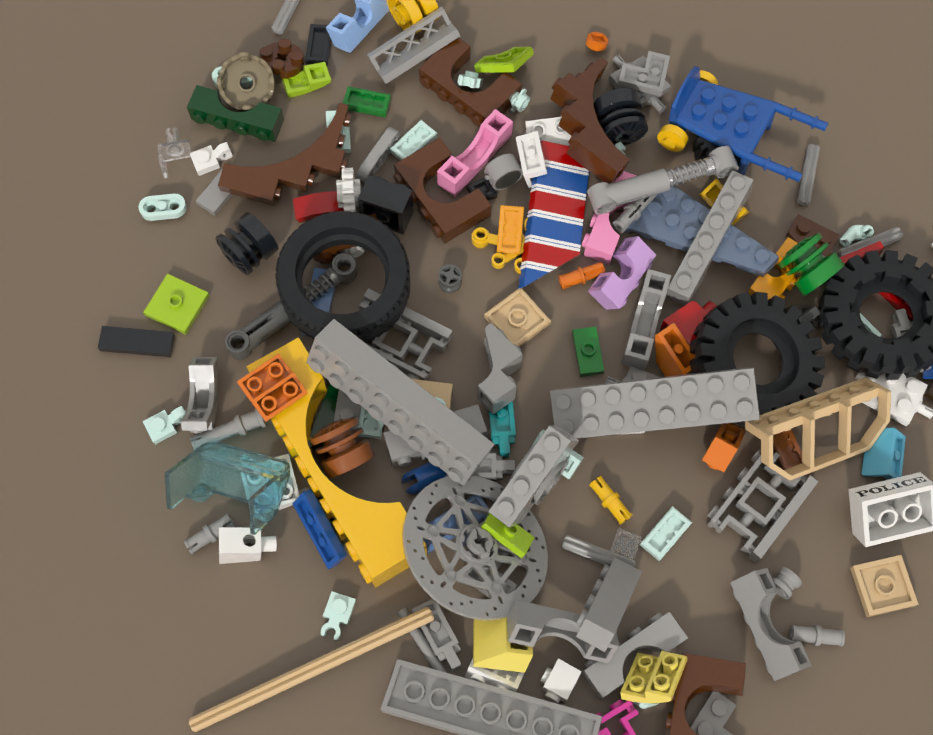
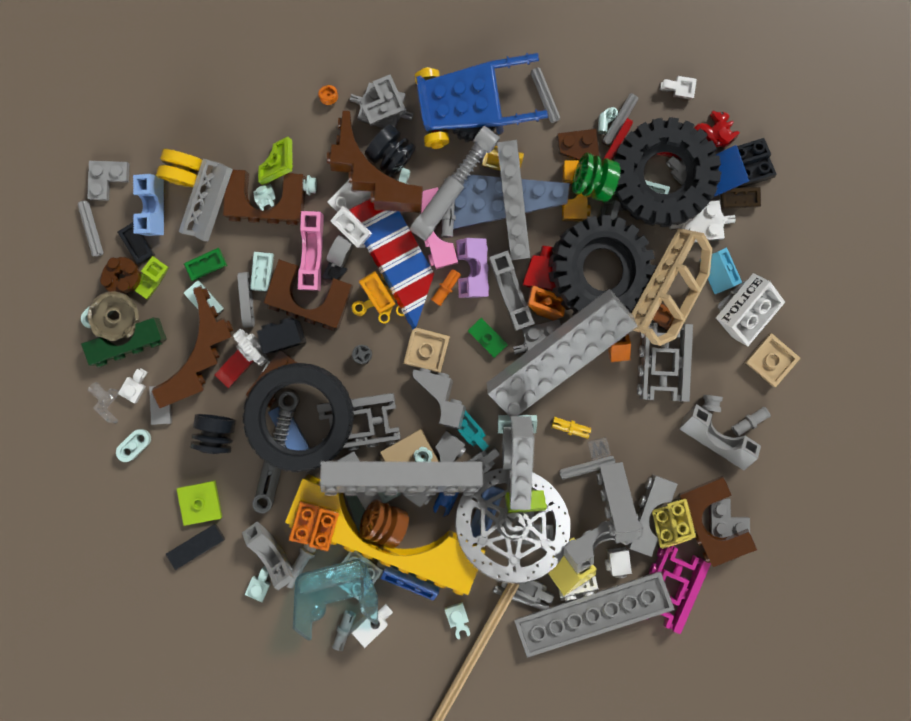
camera: 35 degrees left, 20 degrees up
(665, 533) = (619, 424): light aqua plate -> none

